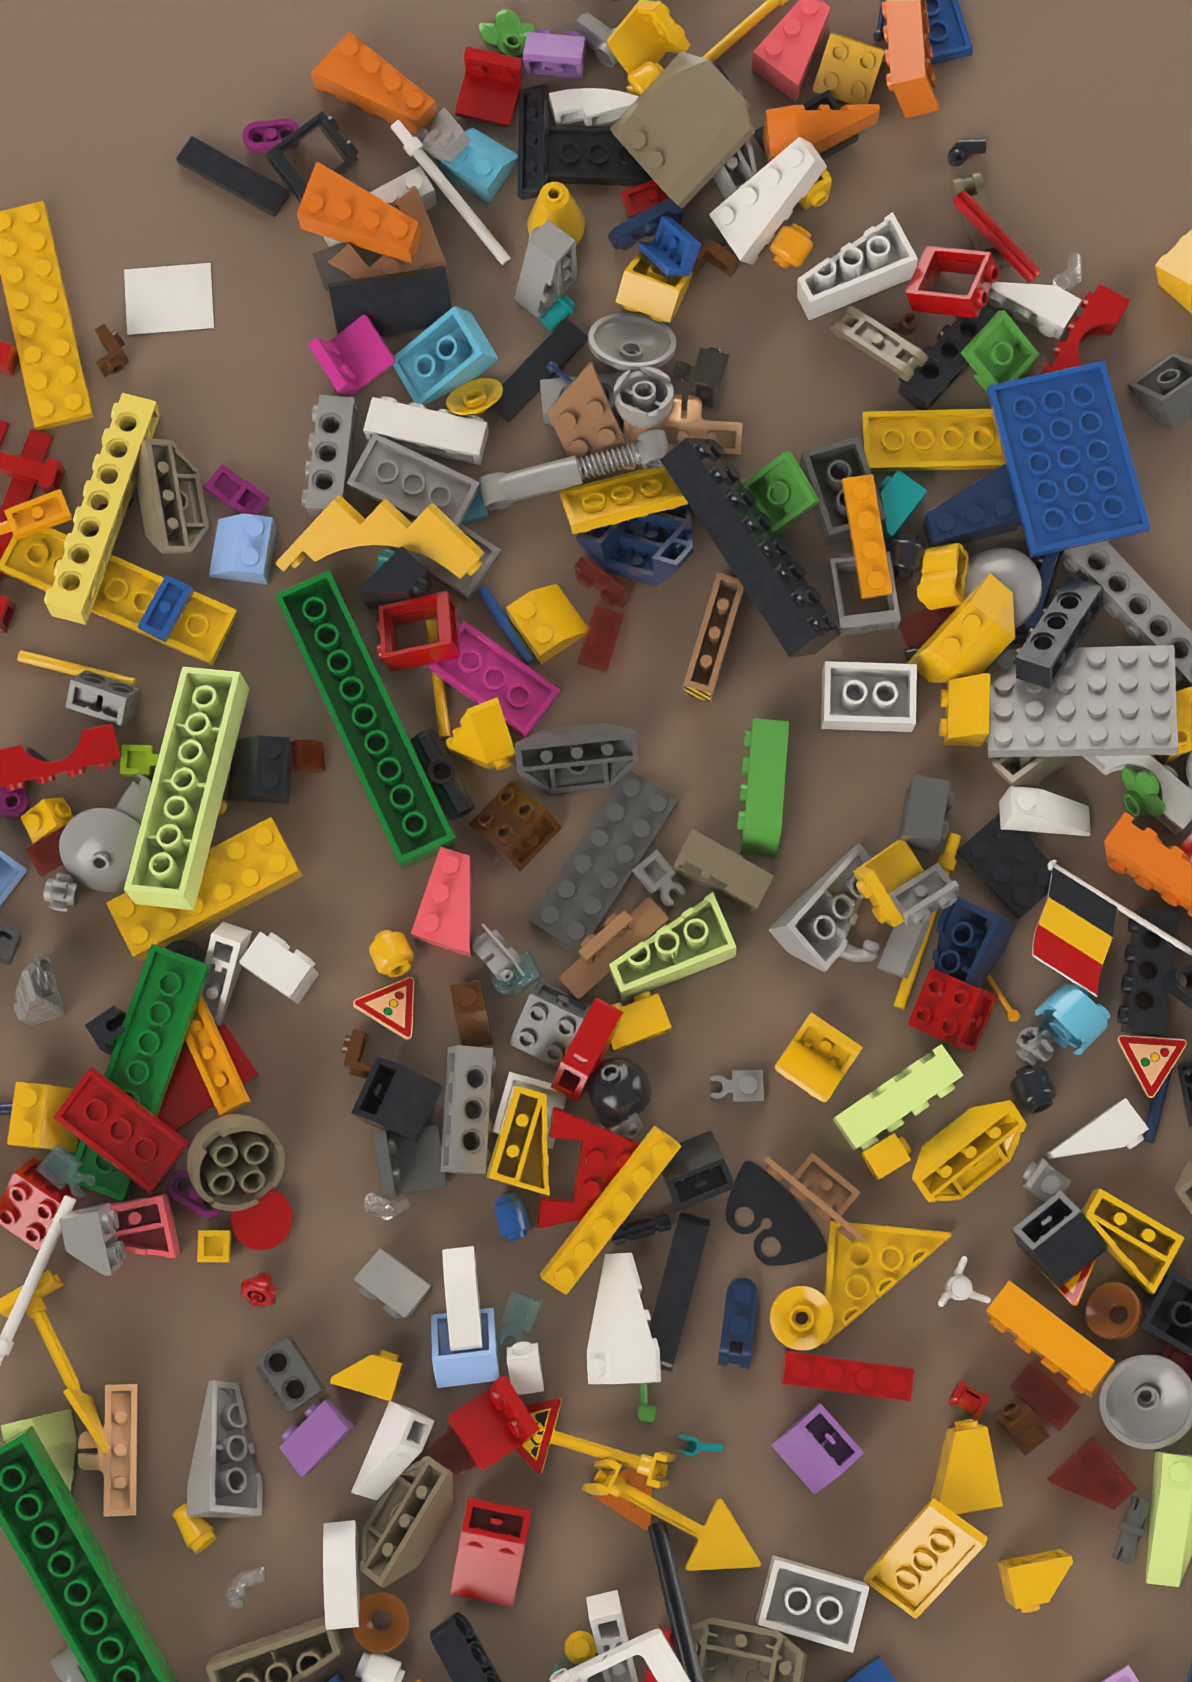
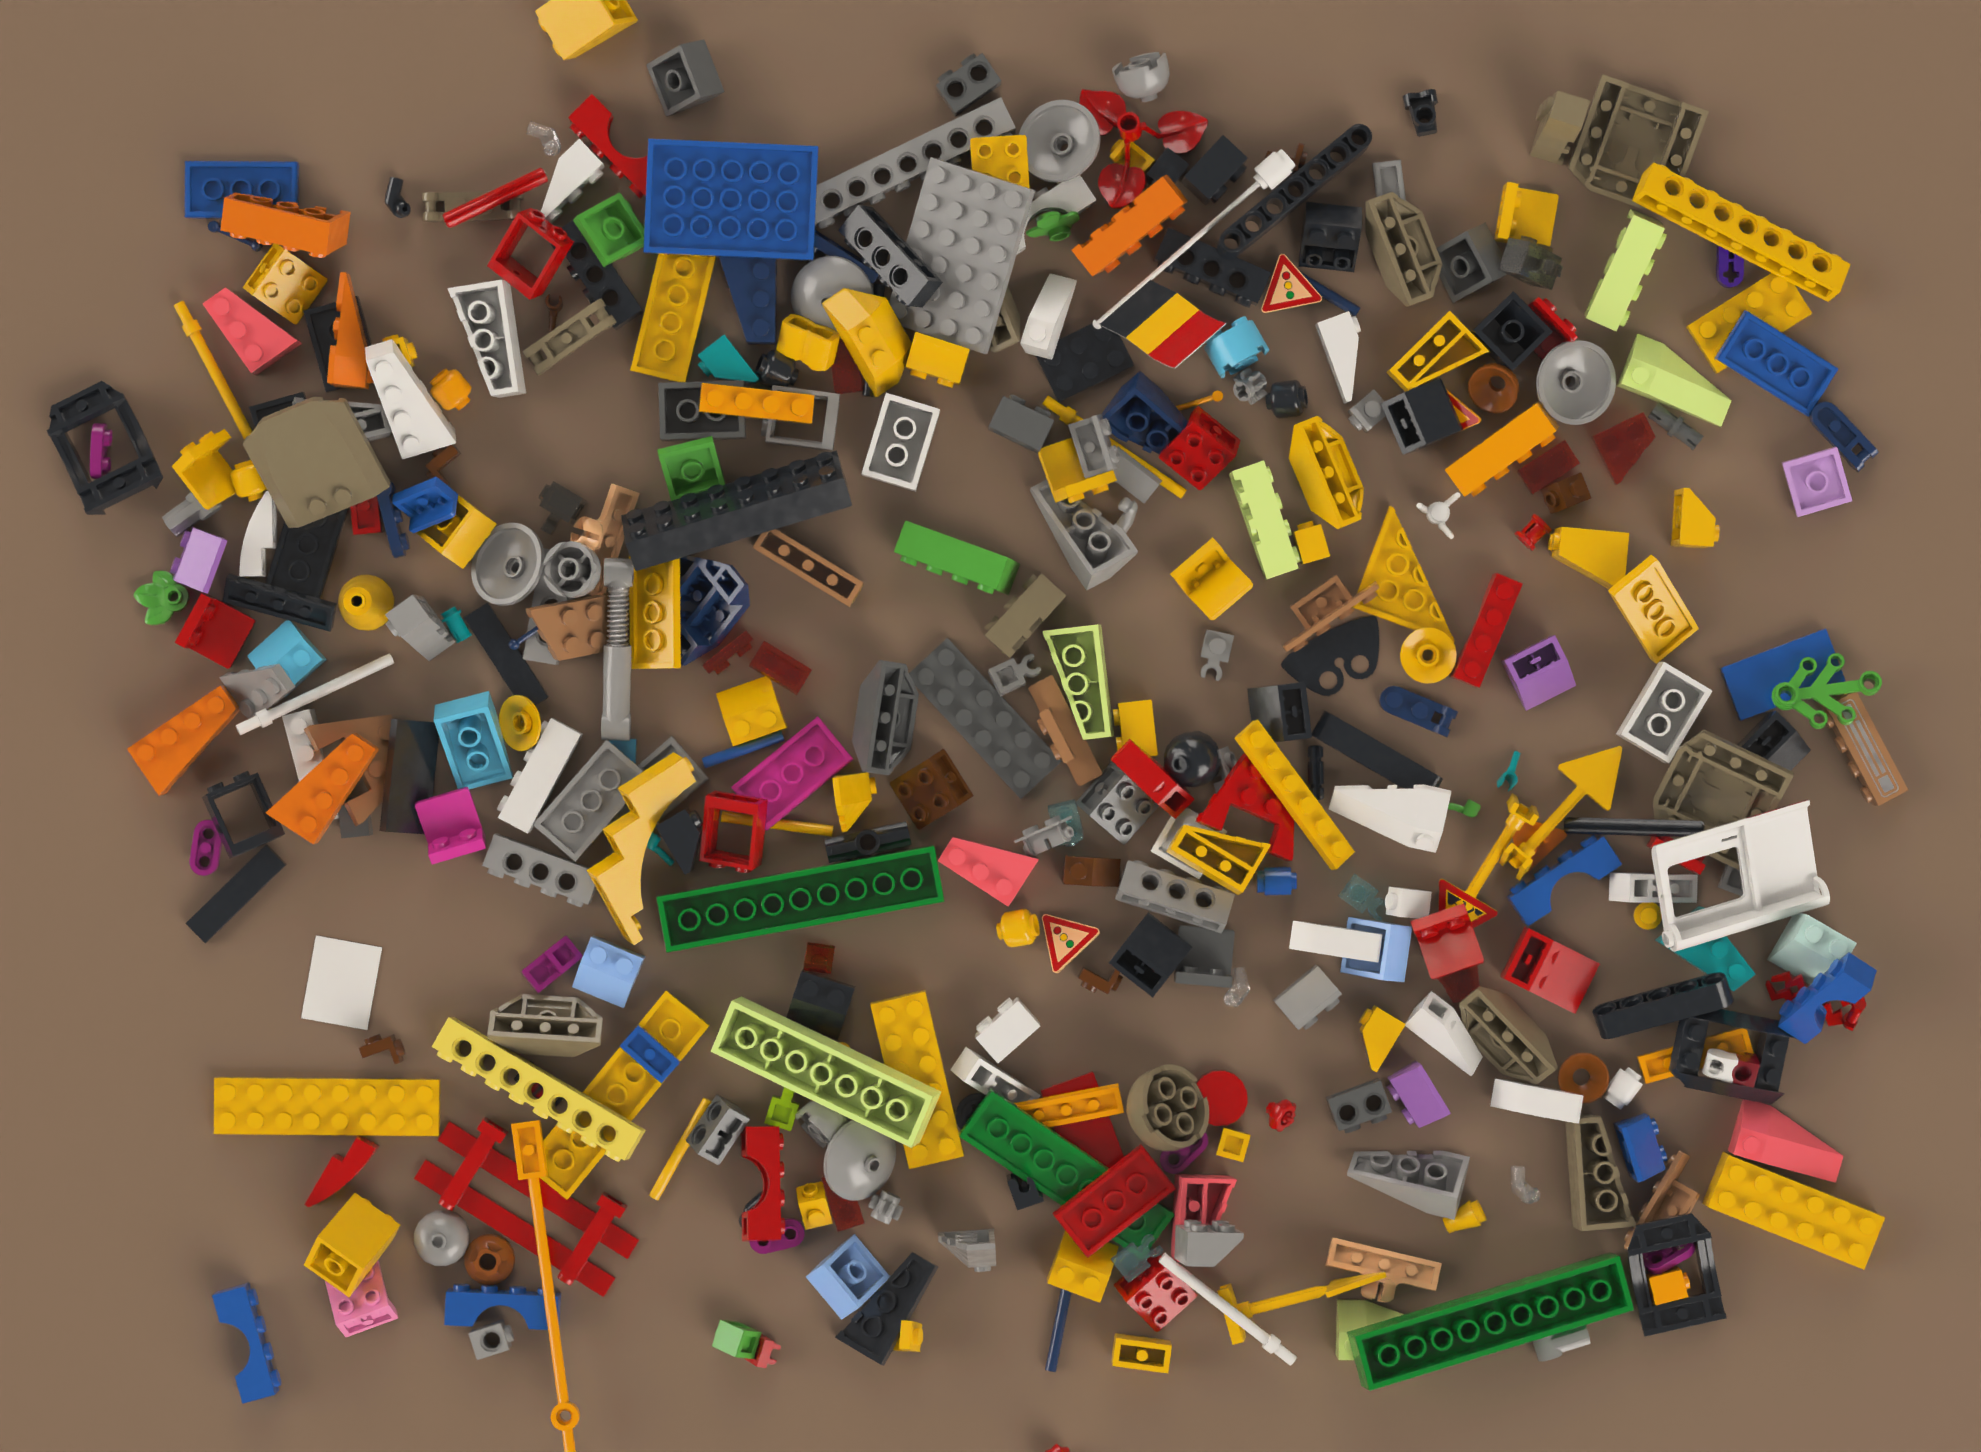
camera: 80 degrees left, 10 degrees up
(566, 1510) = (1533, 898): none -> blue arch

